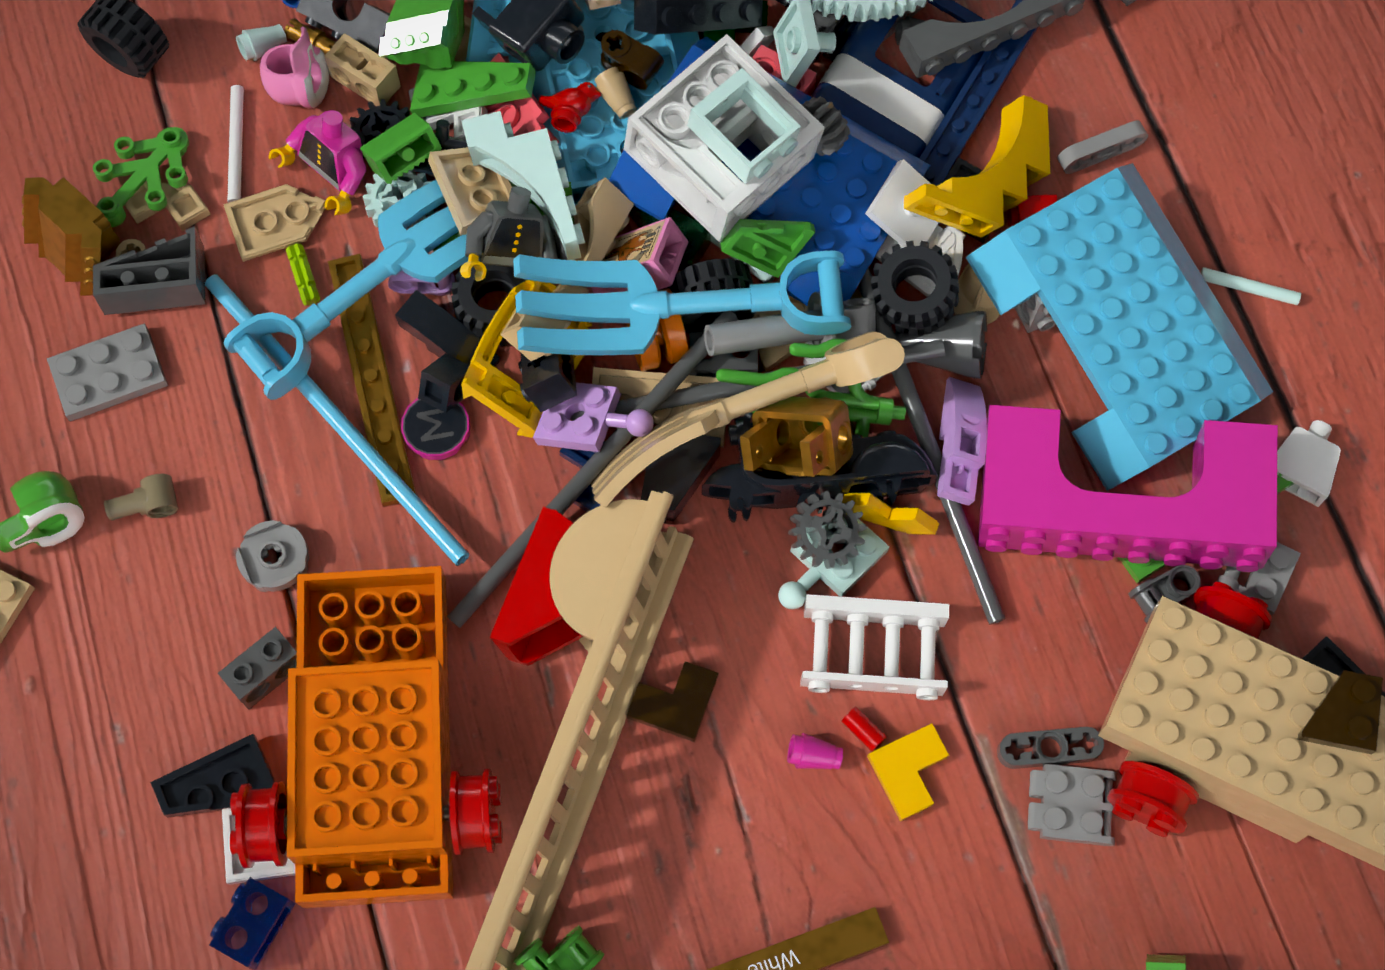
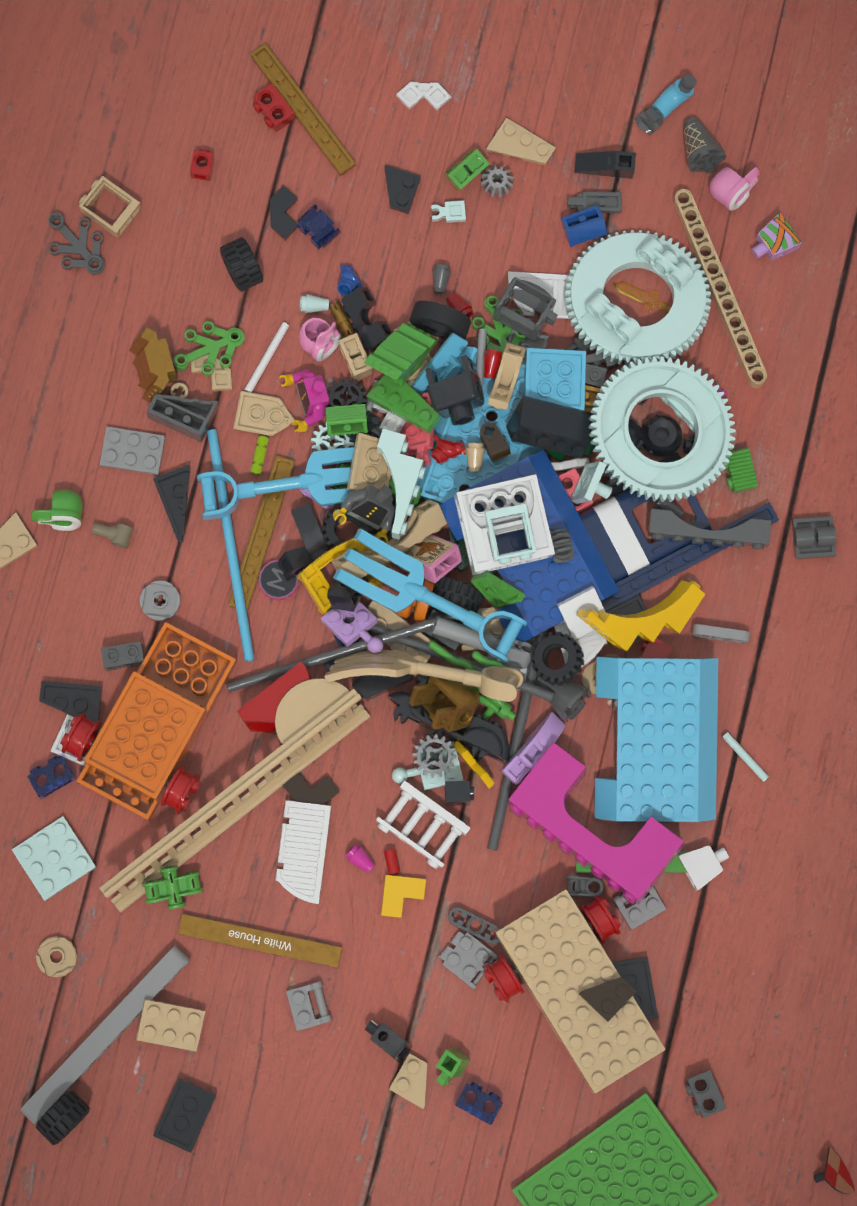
camera: 30 degrees right, 10 degrees up
(205, 395) = (174, 494): none -> black wing
(720, 793) = (303, 849): none -> white piece
(897, 565) = (458, 793): none -> black brick

